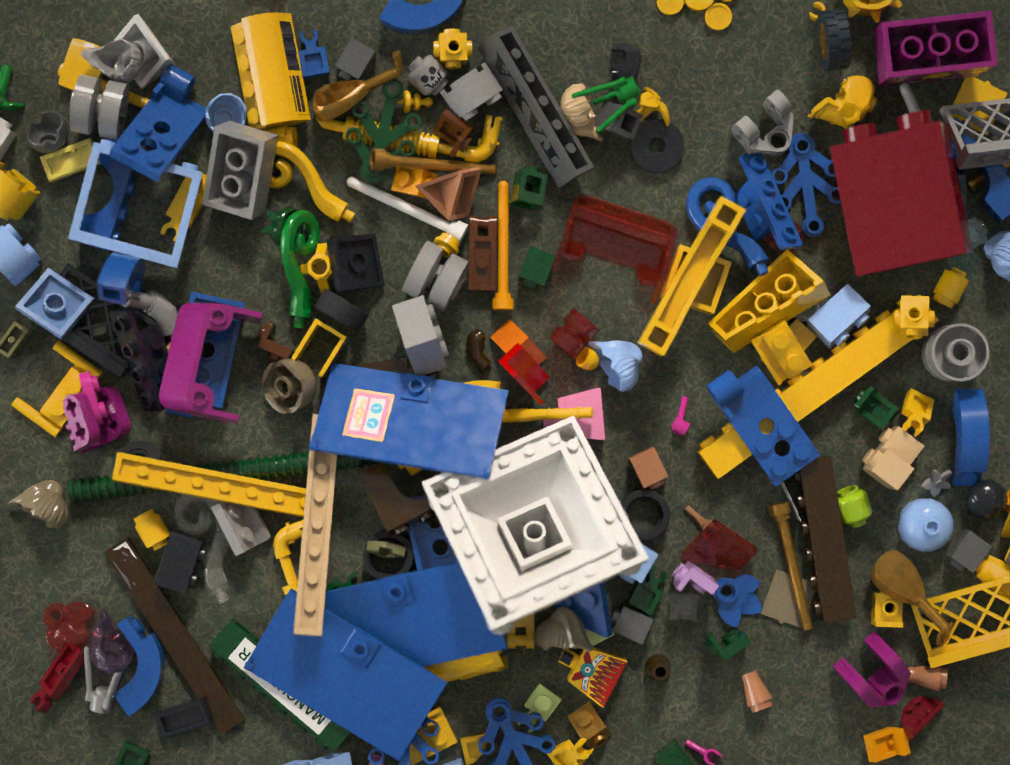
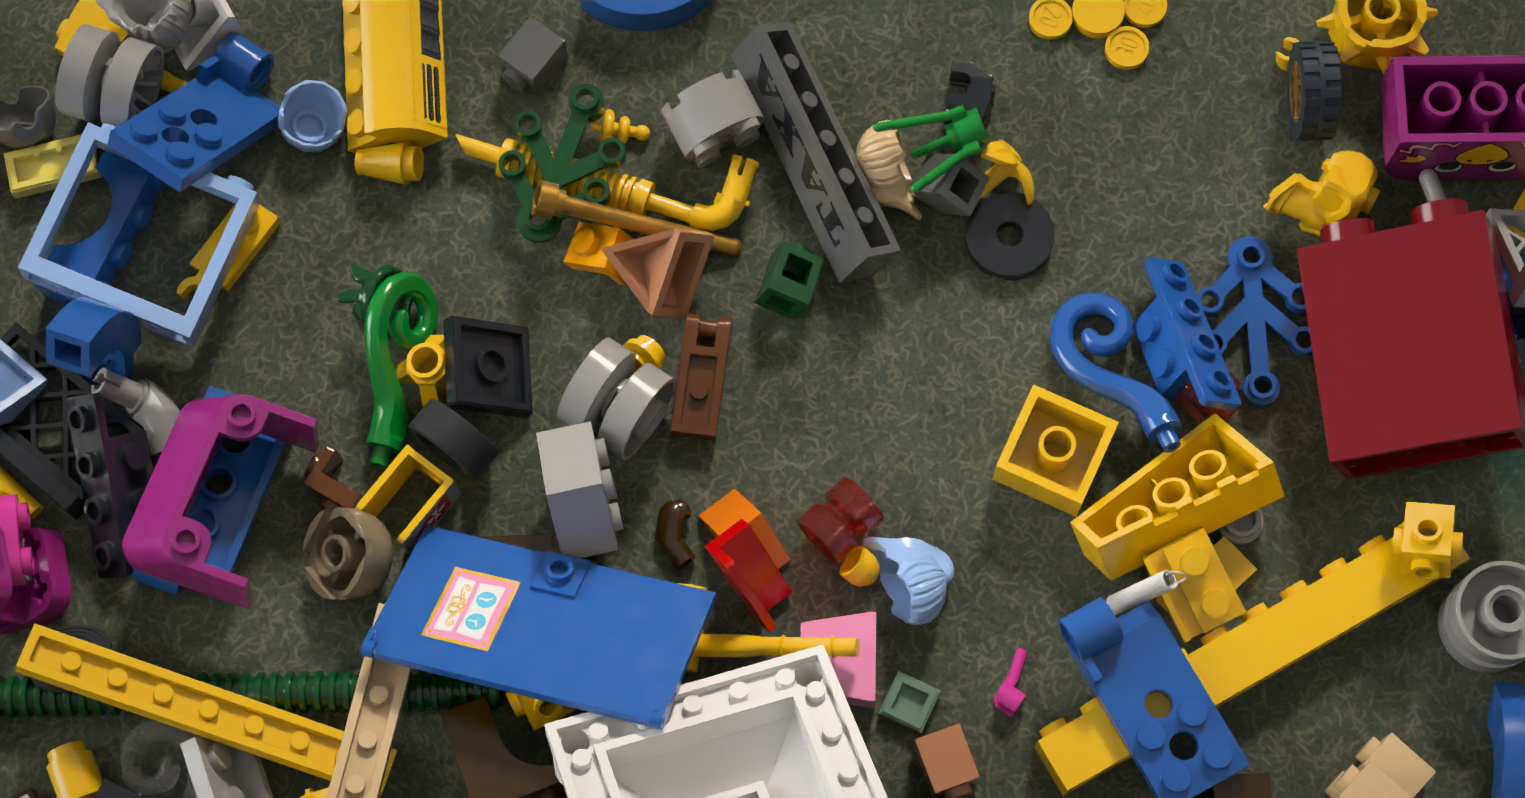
camera: 15 degrees right, 15 degrees down
(240, 169) = (319, 197): light grey brick -> none
(313, 59) = (467, 48): blue plate -> none
(324, 200) = (453, 267): yellow plant -> none
(340, 96) = (494, 105): pearl gold piece -> none
(427, 75) = (645, 88): light grey head -> none
(450, 58) = (690, 51): yellow brick -> none
(454, 131) = (676, 174): reddish brown bracket -> none
(456, 229) = (664, 332): white piece -> none
(503, 299) = (727, 455): light orange piece -> none
(536, 268) = (789, 407): dark green brick -> none
(621, 237) = (928, 371): clear red windscreen -> none
(623, 434) = (909, 702): none -> sand green tile
(690, 276) = (1046, 432): yellow arch -> none
(748, 134) = (1160, 220): light grey piece -> none
(752, 360) = (1143, 591): none -> white piece
(839, 316) = (1297, 537): light blue brick -> none
(875, 408) = (1353, 701): dark green bracket -> none
(917, 409) = (1426, 710): yellow plate -> none
(950, 287) = (1492, 510): yellow brick -> none

